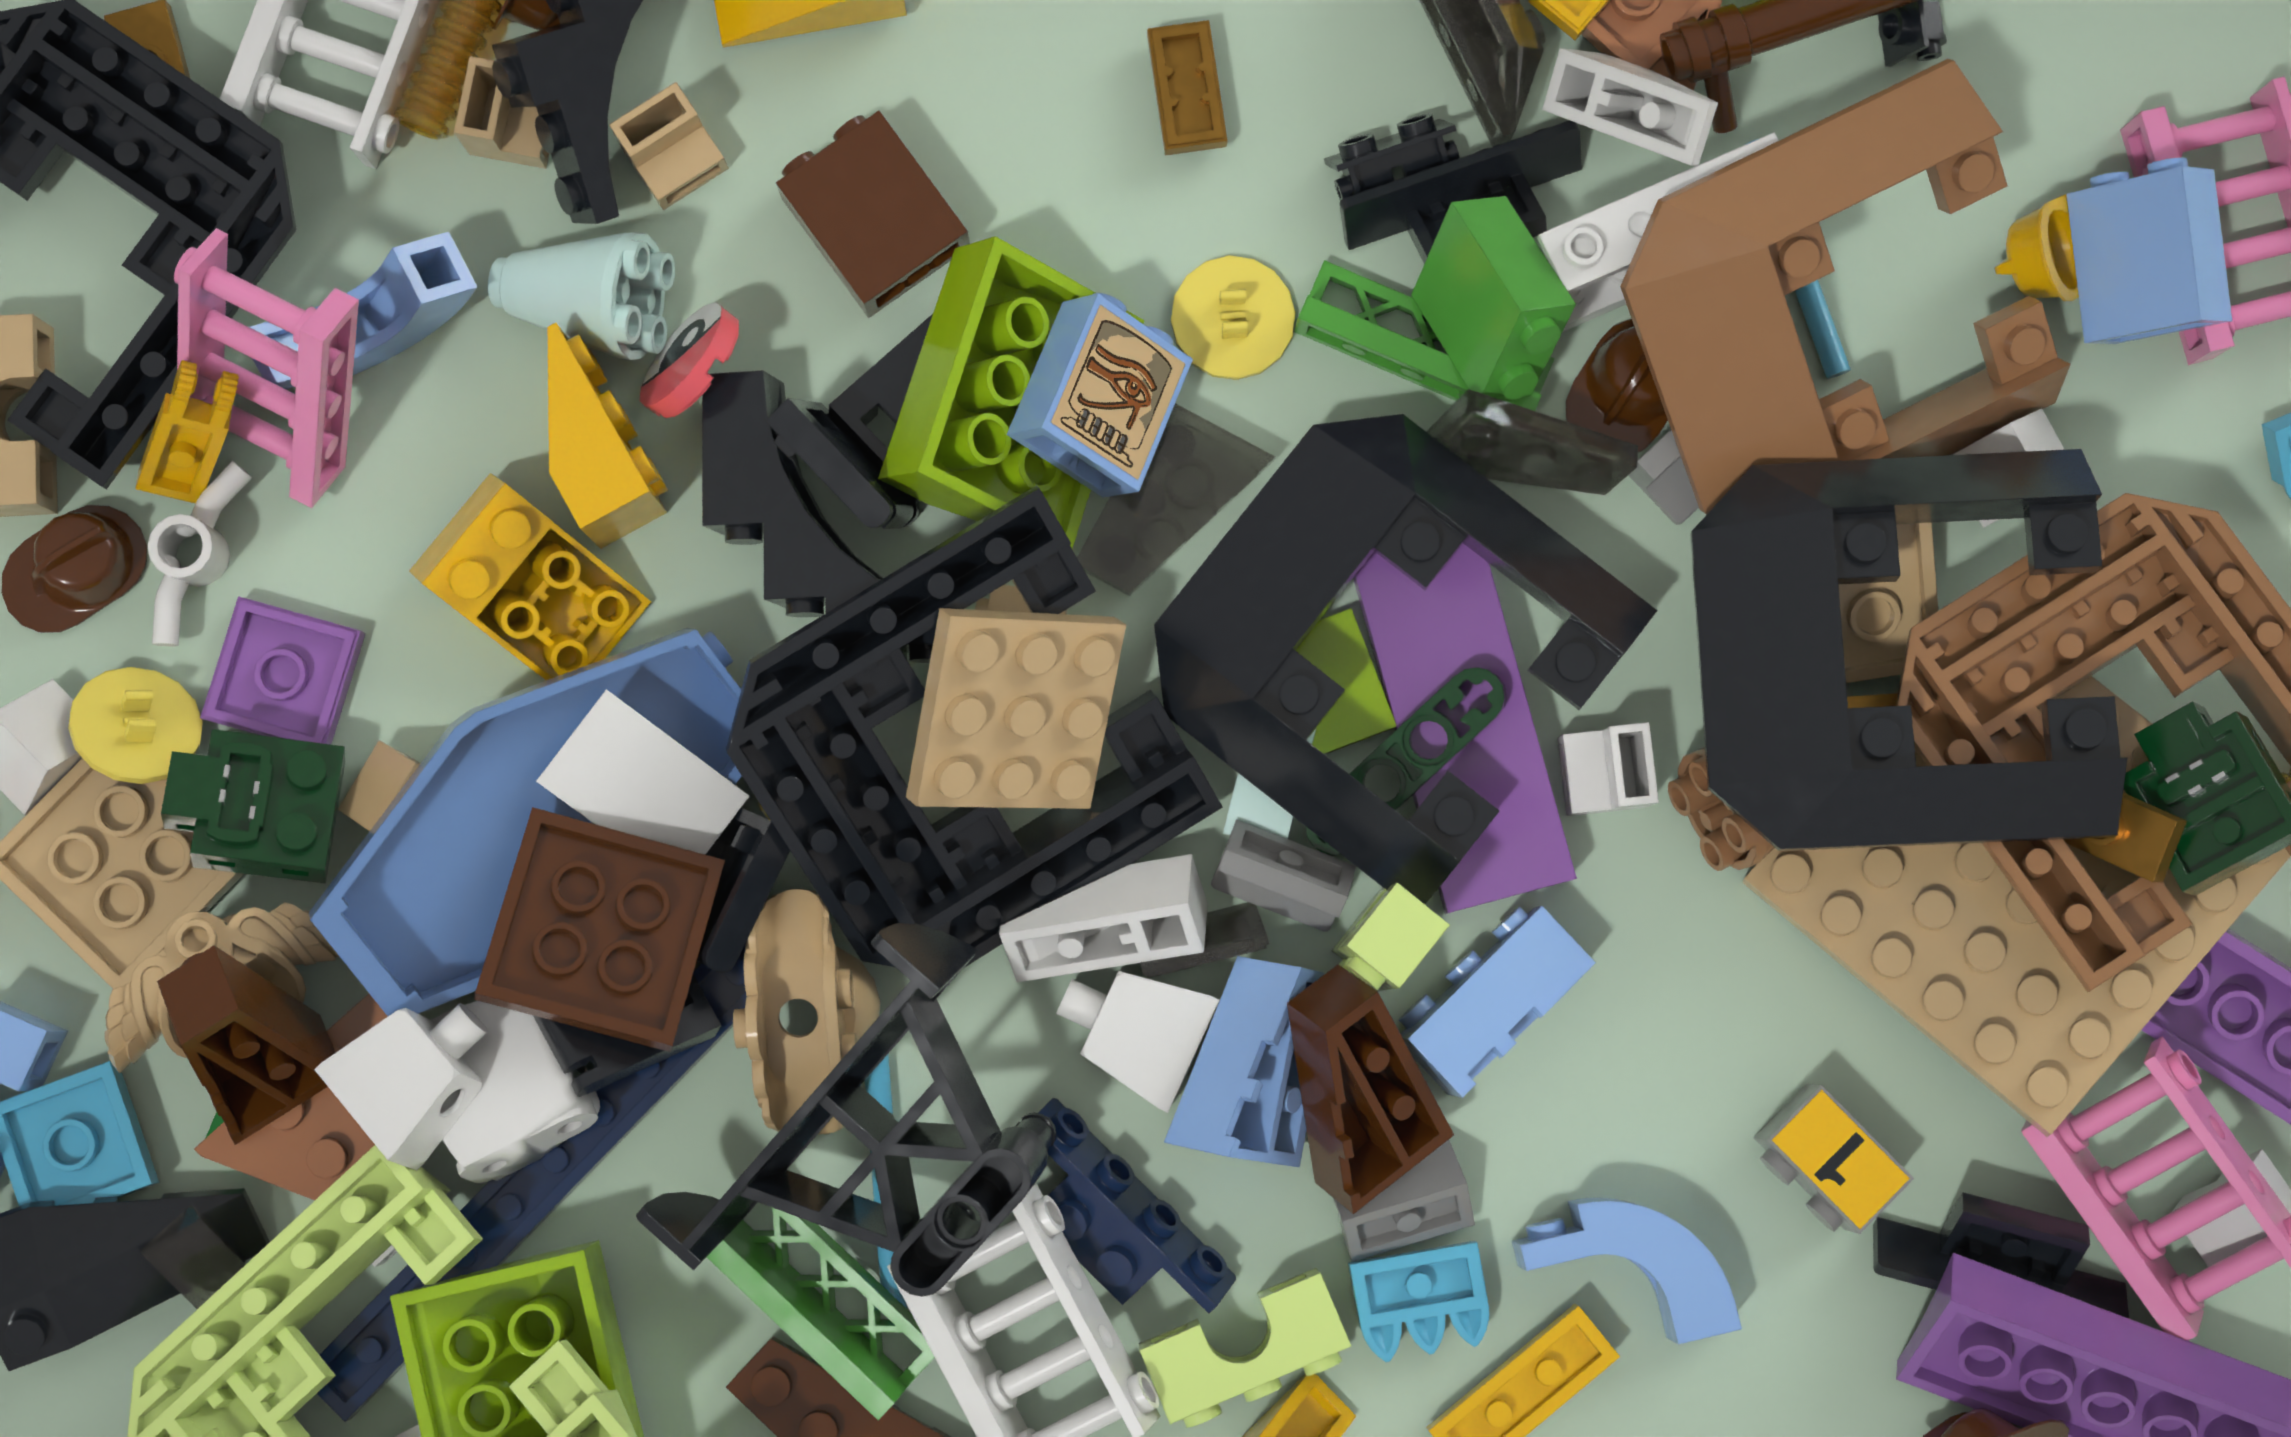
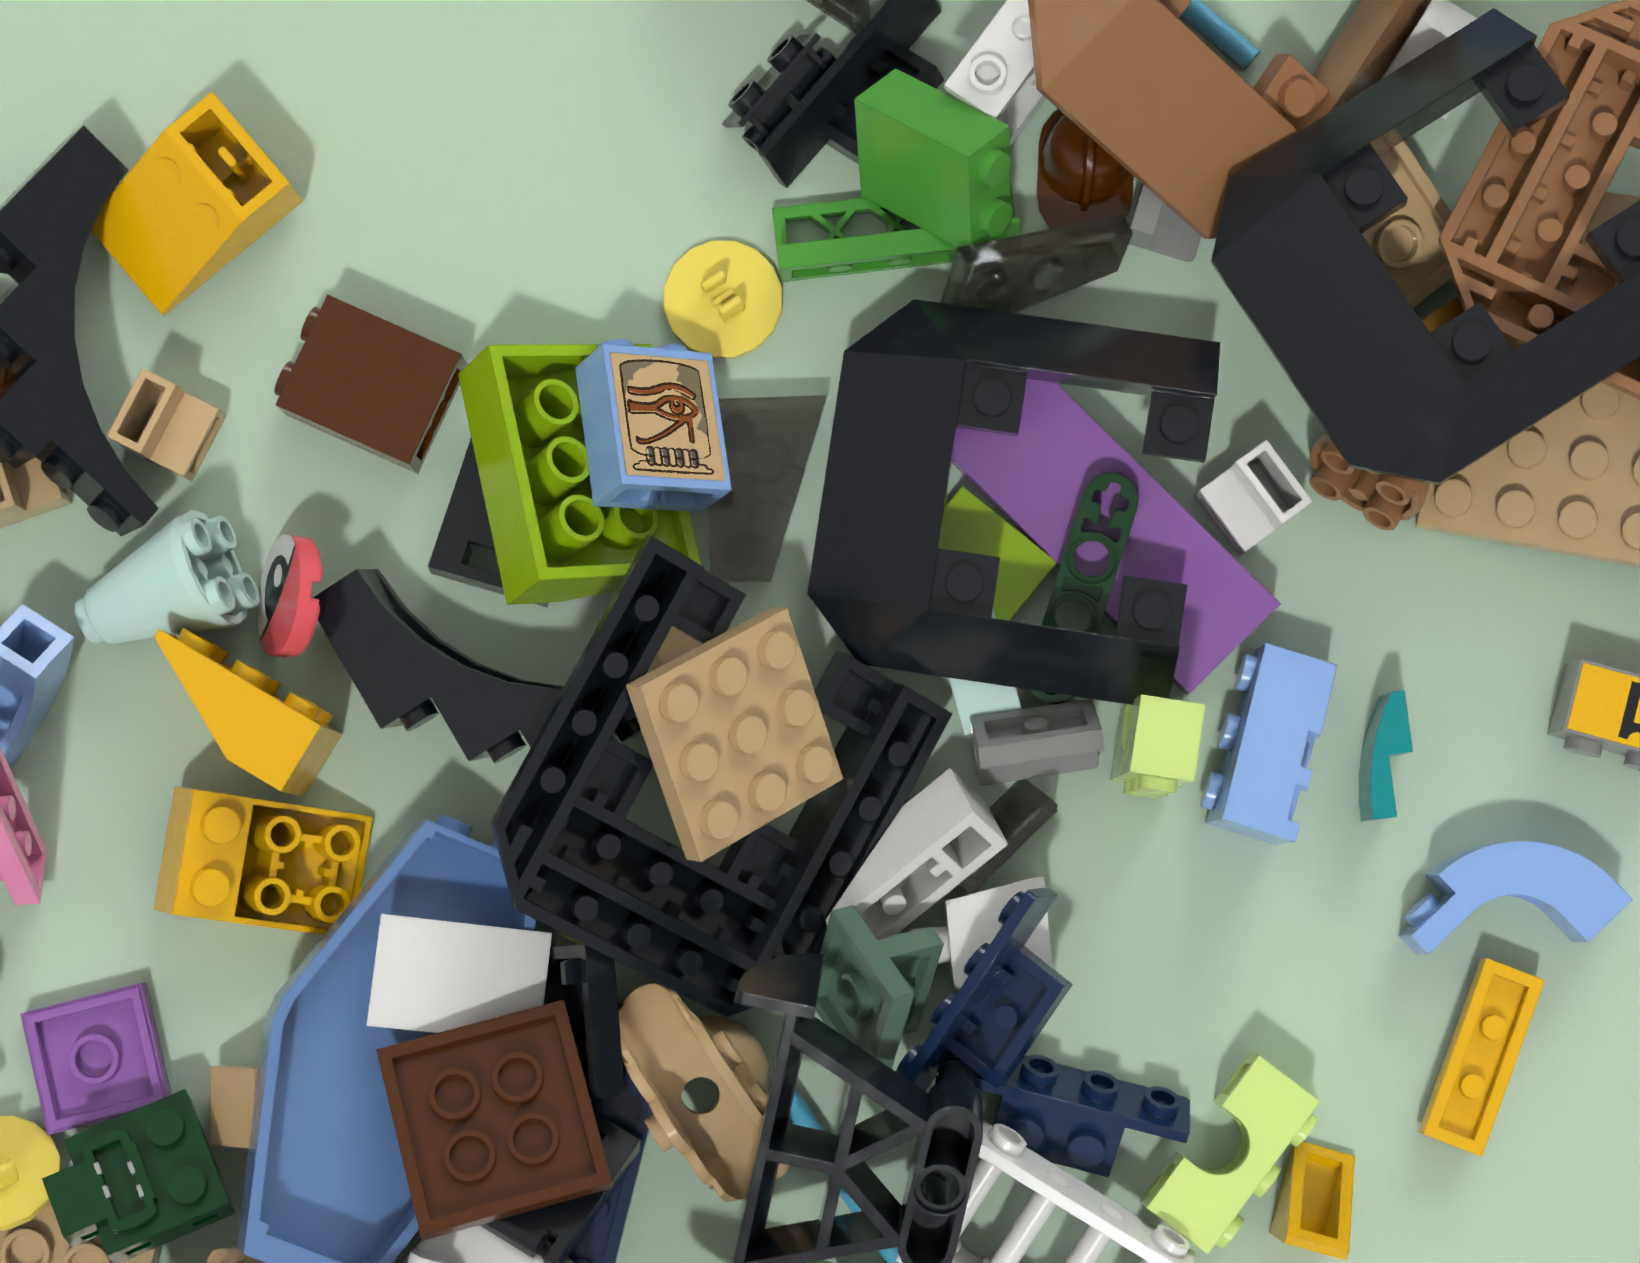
camera: 20 degrees left, 0 degrees up
(841, 464) = (467, 609): black container -> none
(1010, 1010) = (874, 986): none -> sand green bracket
(1110, 1090) = (998, 1006): none -> dark blue bracket
(1187, 87) = (574, 128): pearl gold plate -> none
(1245, 1078) = (1107, 913): light blue wedge -> none
(1359, 1090) = (1205, 885): reddish brown wedge -> none
(1415, 1208) = (1284, 951): light grey panel -> none
(1420, 1291) = (1349, 1022): medium azure plate -> none
(1601, 1055) = (1385, 736): none -> teal slope

